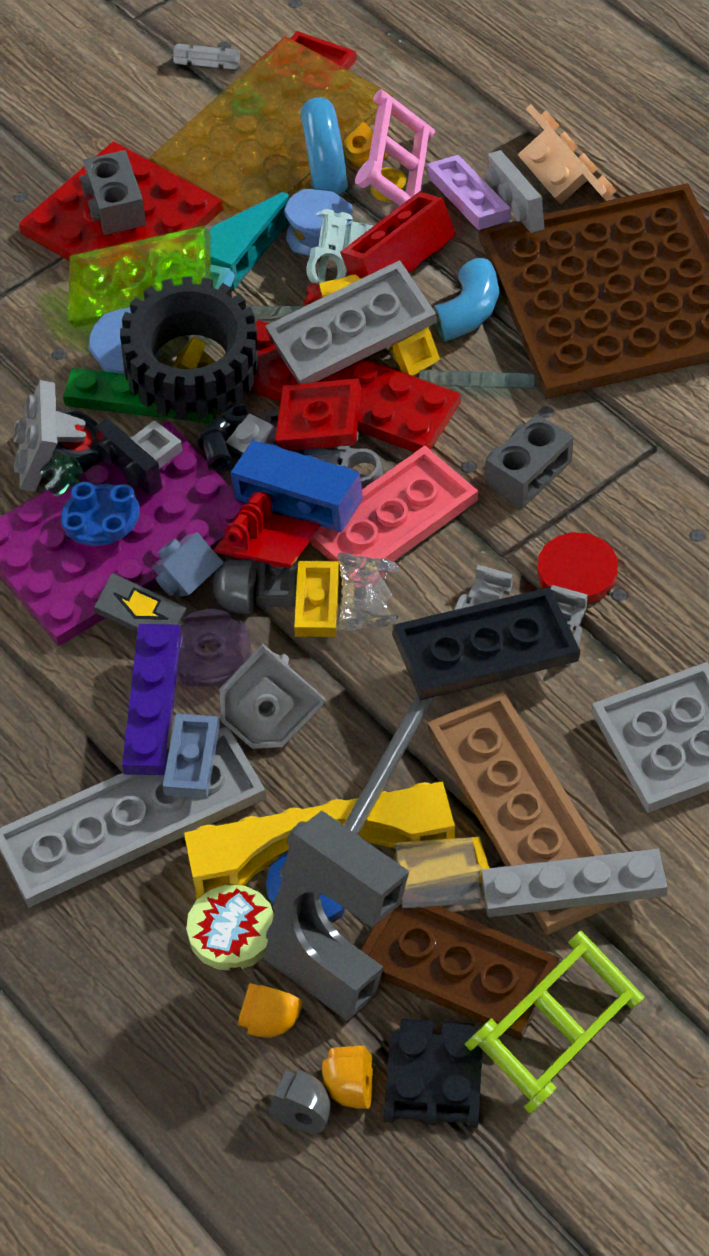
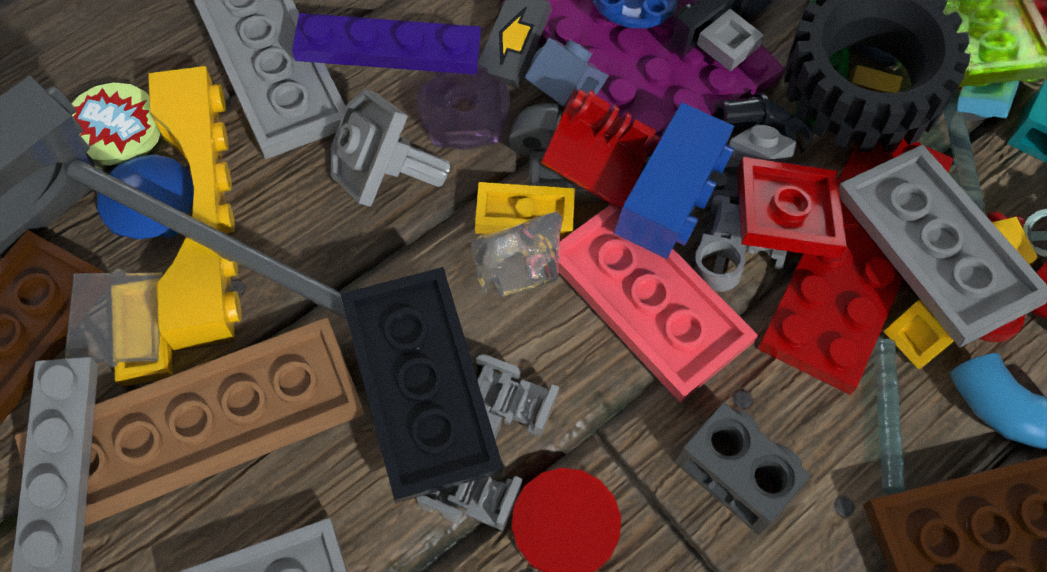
camera: 85 degrees right, 10 degrees up
(191, 756) = (300, 72): sand blue plate -> none

